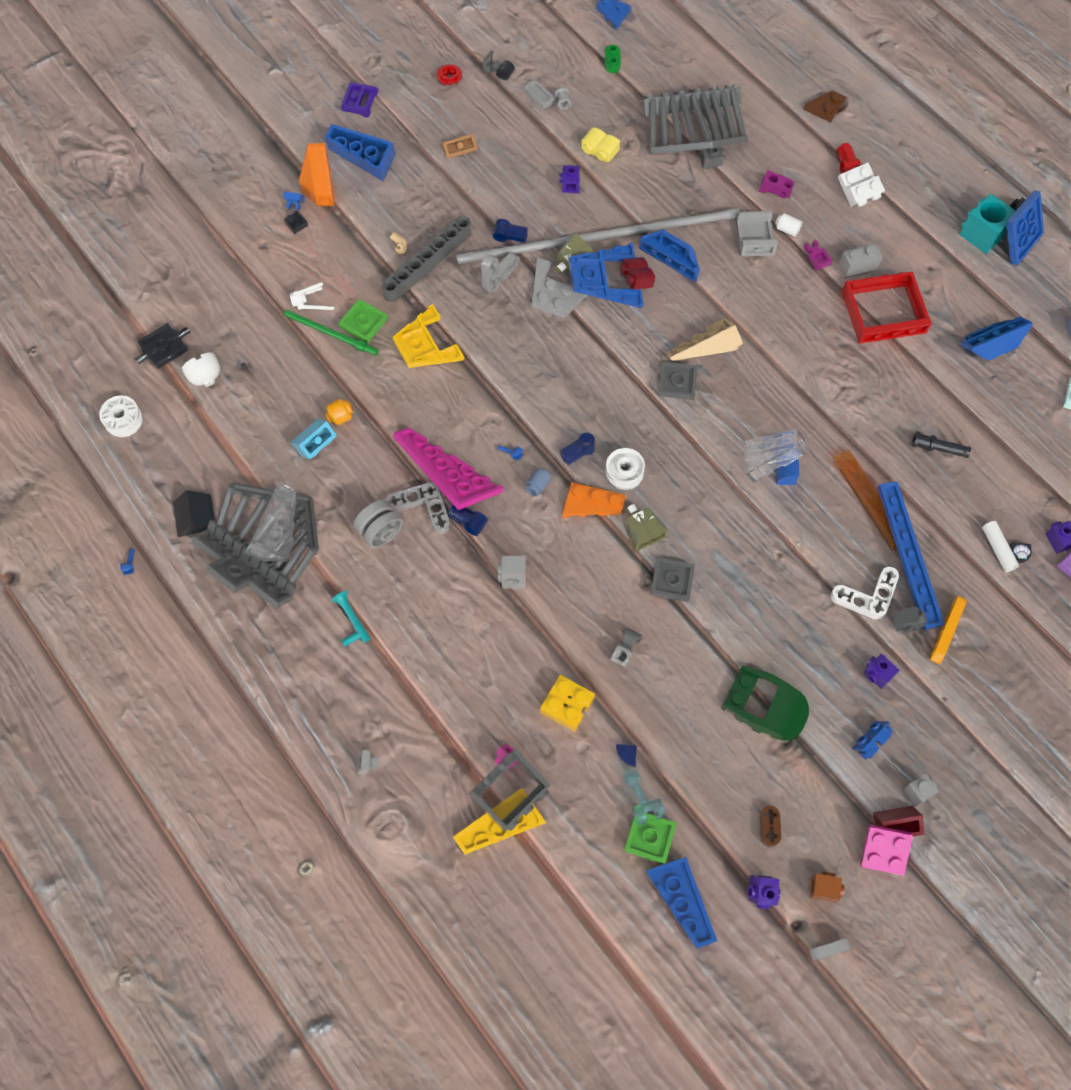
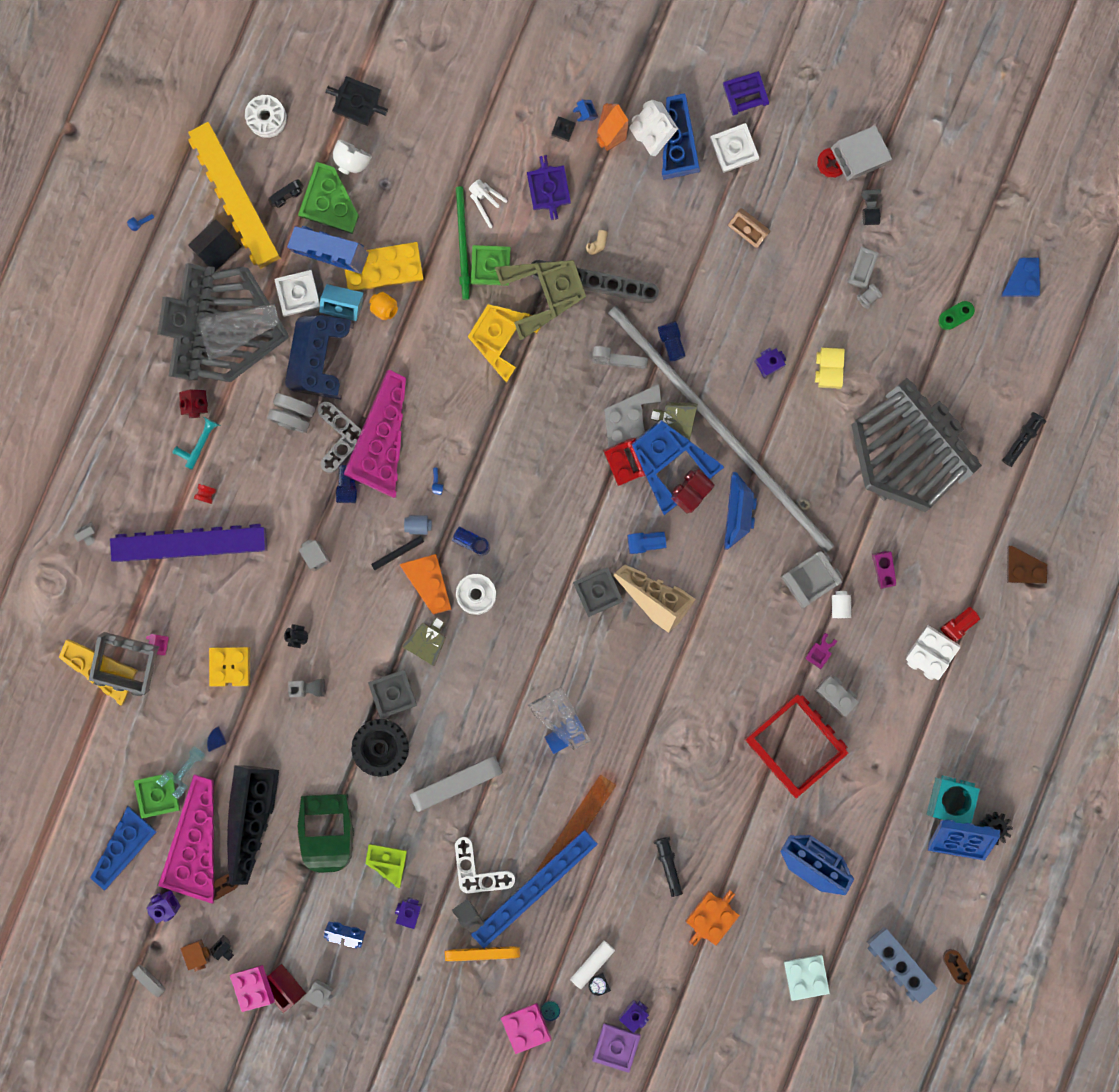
camera: 60 degrees right, 20 degrees up
(163, 474) = (234, 195): none -> yellow brick
(194, 440) = (291, 190): none -> black plate
(225, 407) = (328, 200): none -> bright green plate
(263, 422) = (328, 249): none -> wedge
(281, 468) = (297, 293): none -> white plate
(307, 397) = (387, 267): none -> yellow plate
(313, 601) = (193, 403): none -> dark red brick
(332, 252) = (548, 187): none -> dark purple plate
(340, 485) = (309, 355): none -> dark blue windscreen
(343, 156) = (653, 126): none -> white plate
(394, 124) = (734, 148): none -> white plate
(399, 637) = (205, 494): none -> red wheel
(414, 274) = (560, 285): none -> olive wing
(434, 677) = (188, 544): none -> dark purple brick
(456, 51) = (861, 153): none -> light grey brick
(551, 512) = (398, 552): none -> black bar
(574, 629) = (296, 636): none -> black gear
(582, 312) = (619, 462): none -> red plate
(657, 329) = (643, 542): none -> blue piece
(706, 756) = (249, 808): none -> black wedge
(711, 628) = (395, 747): none -> black wheel
(724, 835) = (191, 854): none -> dark pink wing
(726, 57) = (1028, 430): none -> black pin
(781, 571) = (456, 783): none -> light grey beam
(824, 665) = (387, 862): none -> lime wing
(832, 858) = (222, 948): none -> black tile
(1001, 437) = (712, 918): none -> orange plate
(1026, 603) = (550, 1010): none -> tile
(1035, 629) = (526, 1028): none -> dark pink plate

